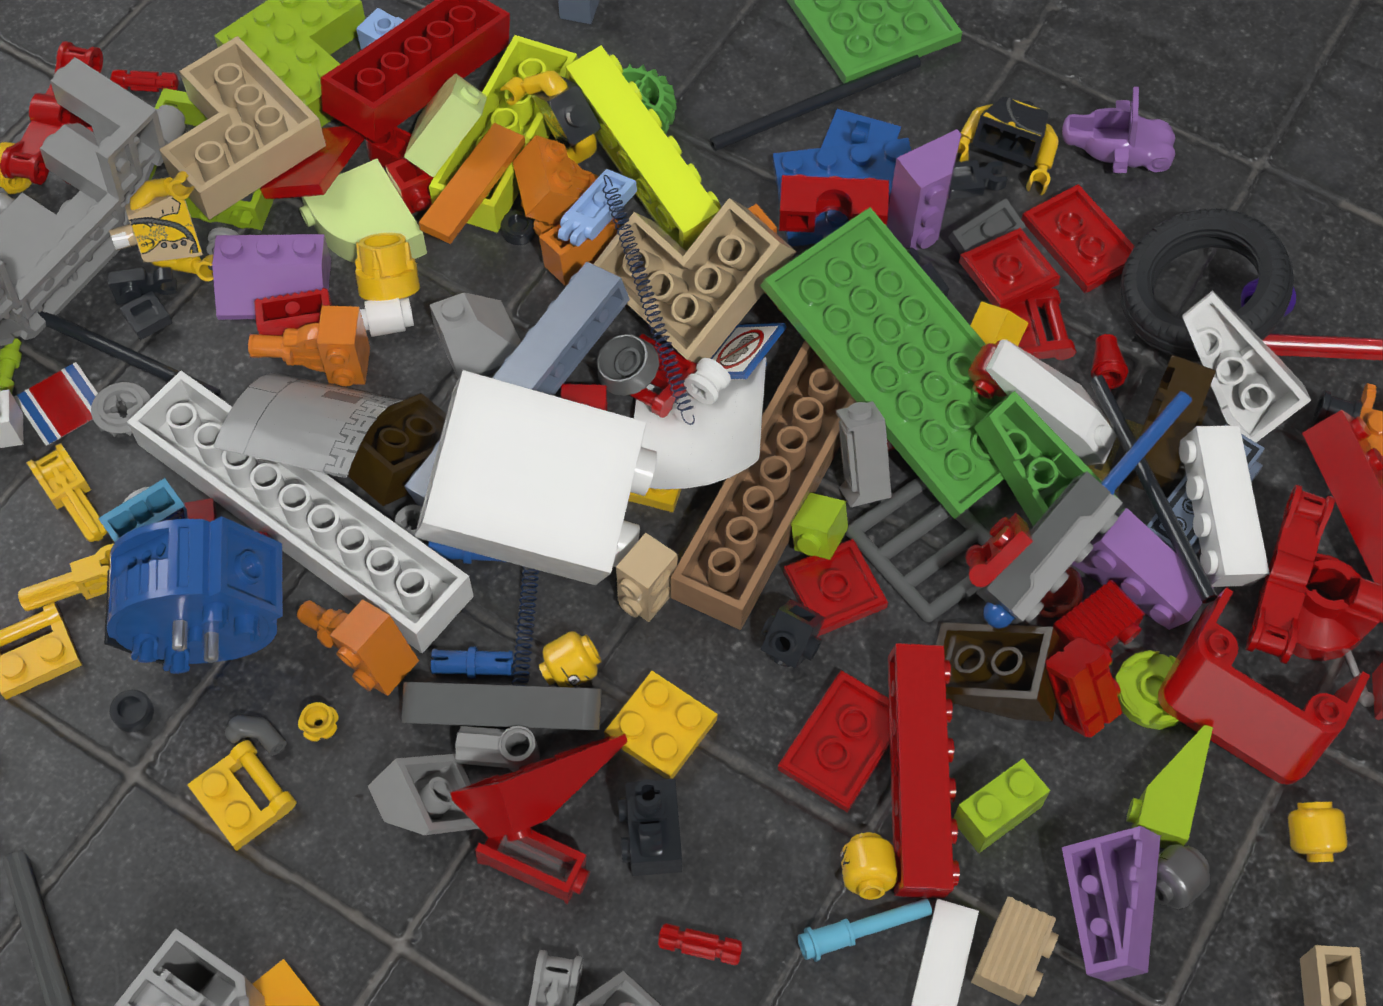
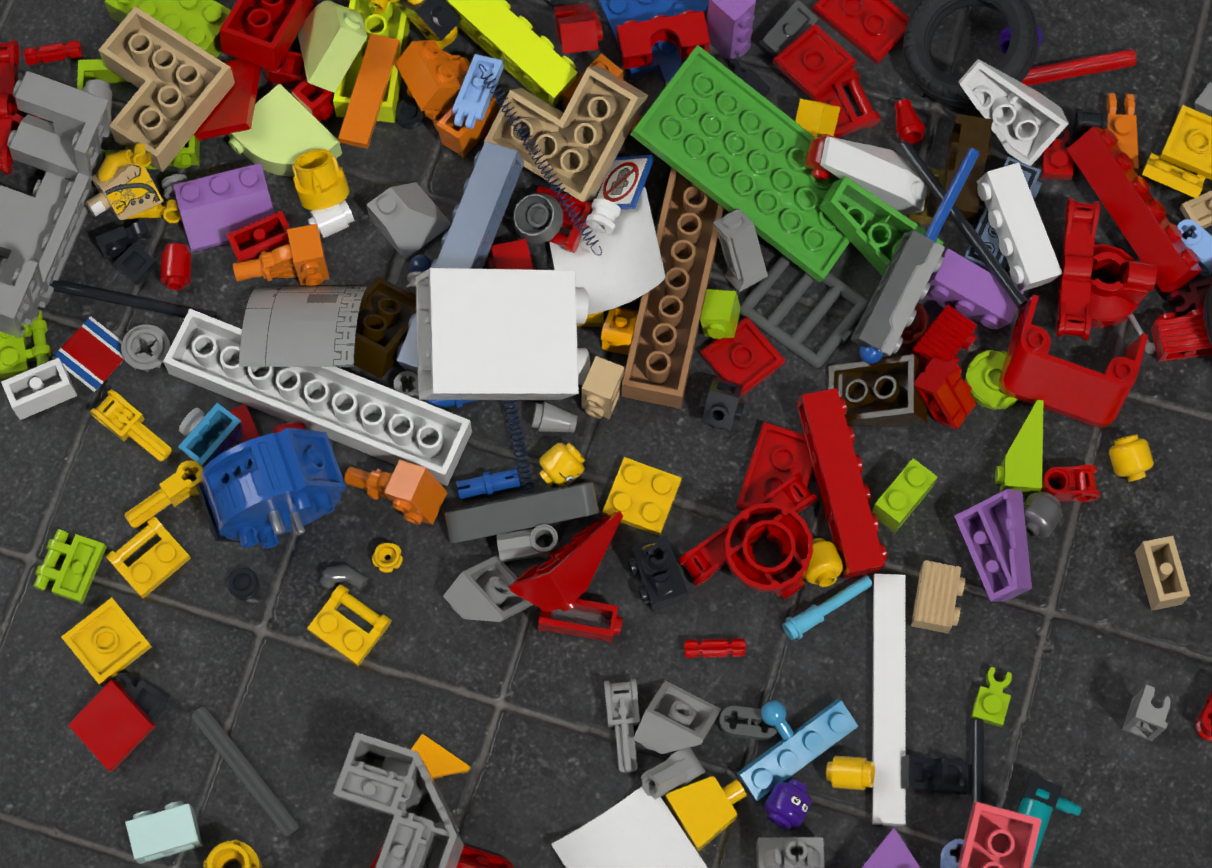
camera: 15 degrees left, 10 degrees up
(190, 328) = (176, 266): none -> red brick
(576, 603) = (553, 419): none -> light grey cone
(685, 516) = (619, 330): none -> light orange slope
(735, 169) = (577, 28): none -> red arch
(820, 789) = (777, 519): none -> red piece
(1007, 542) = (865, 298): red plate -> none
(1235, 845) = (1076, 483): none -> red piece
(1287, 446) = (1056, 159): none -> red plate

